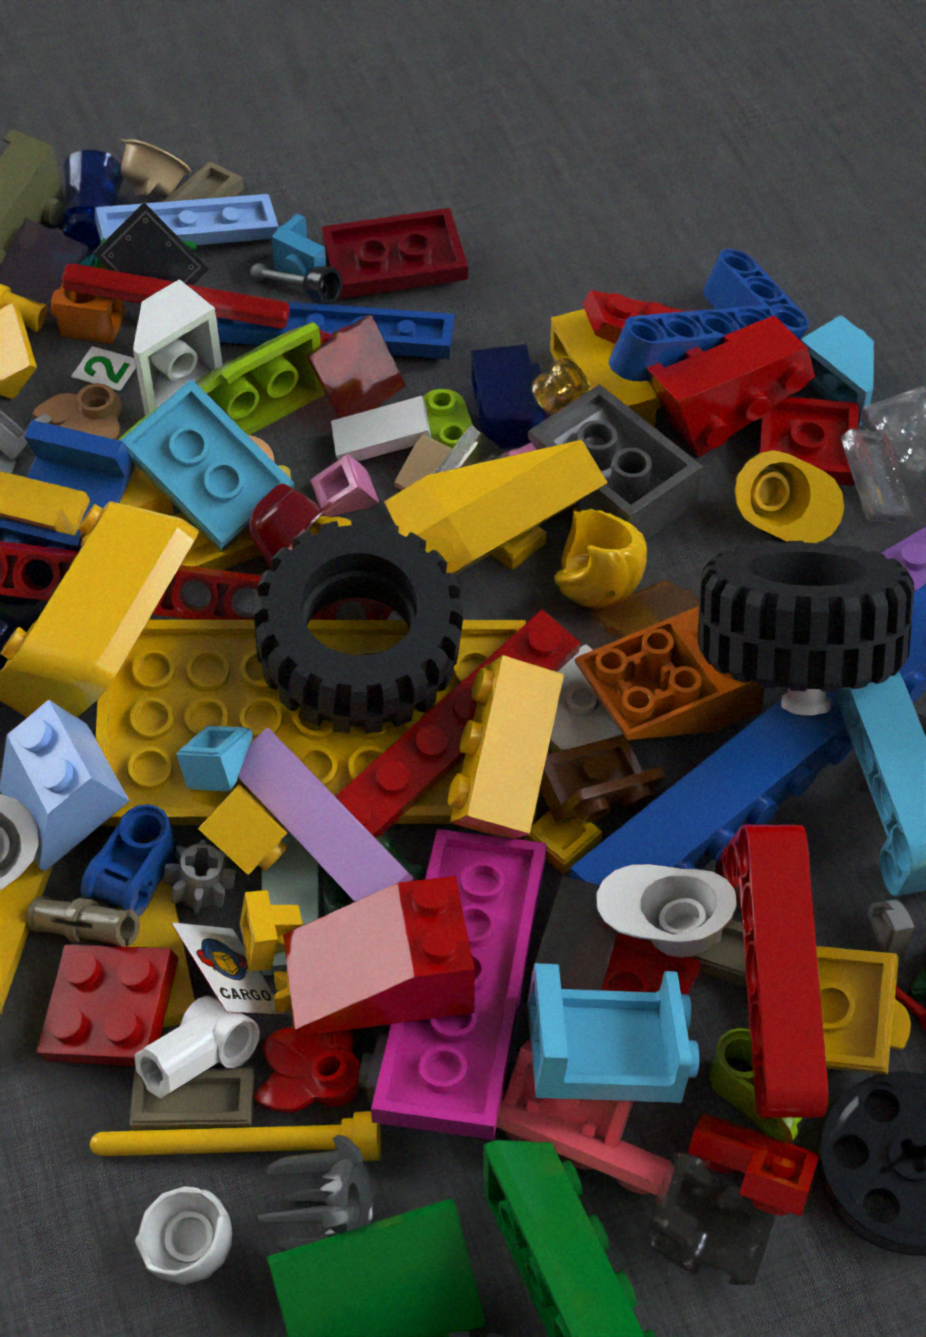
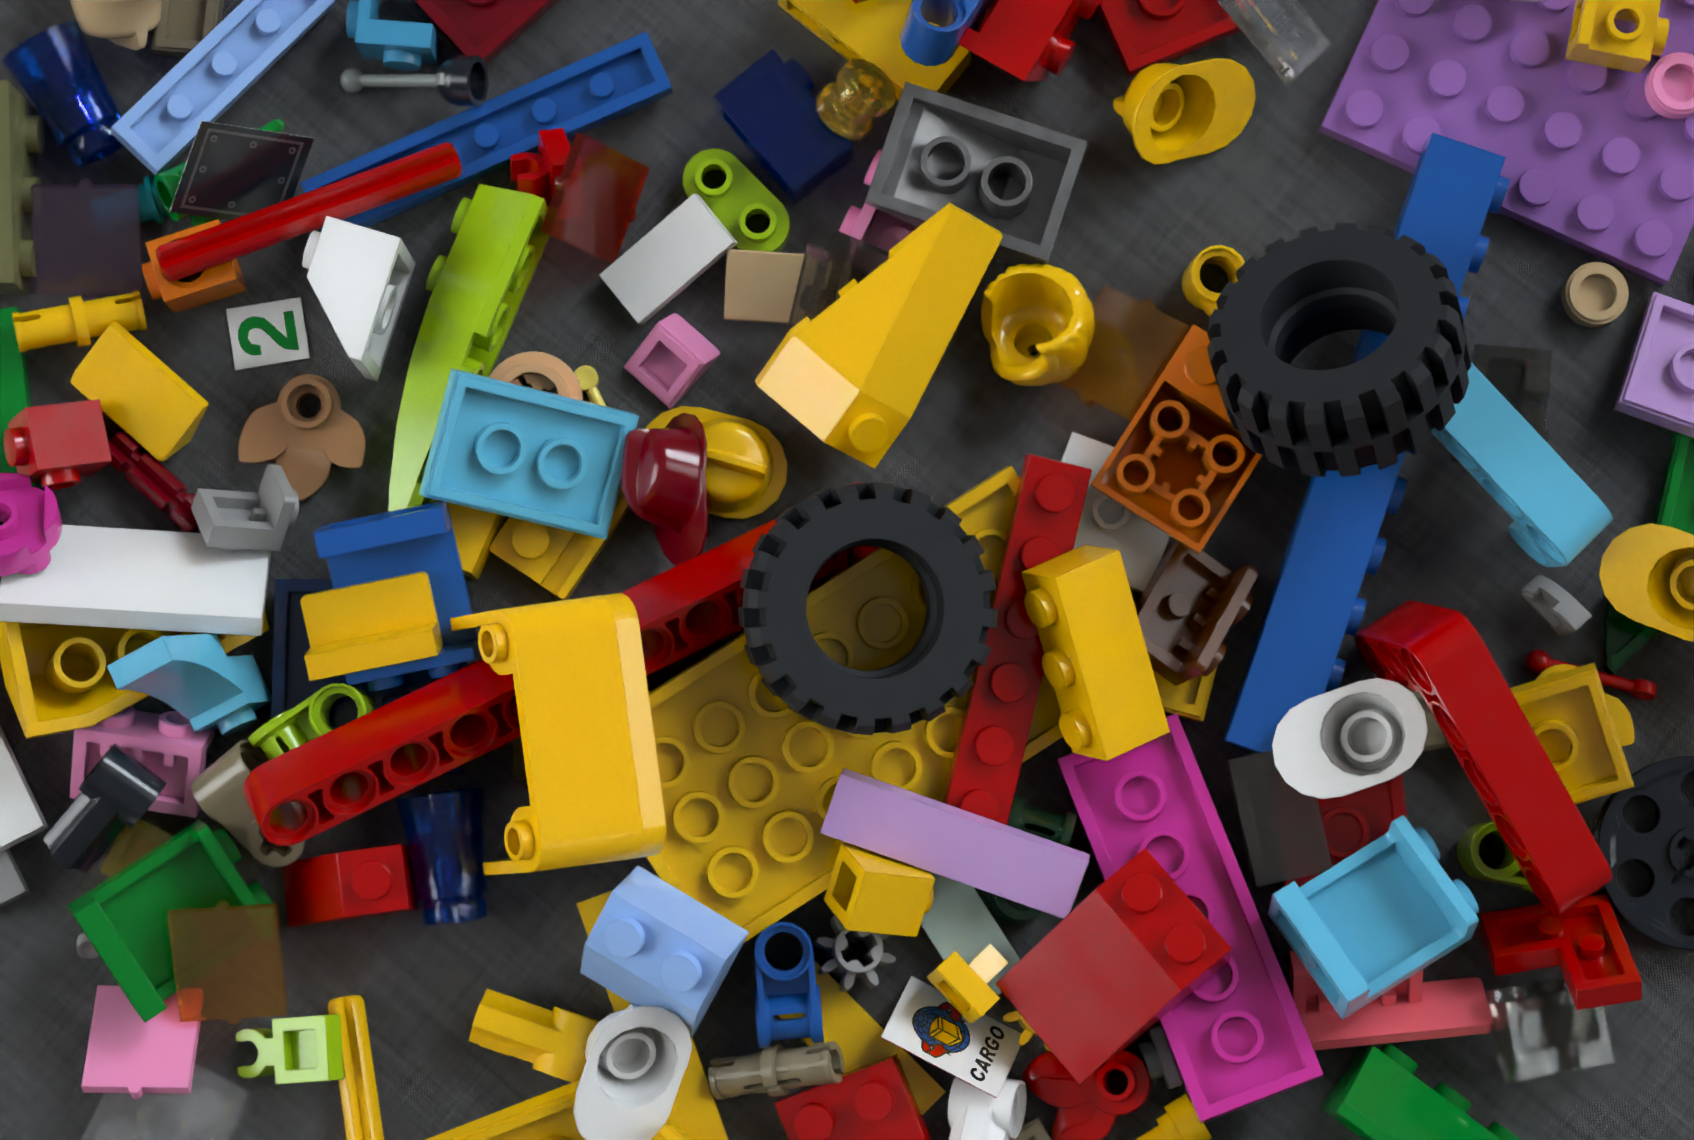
camera: 30 degrees left, 30 degrees up
(214, 757) = (803, 831): medium azure slope -> none

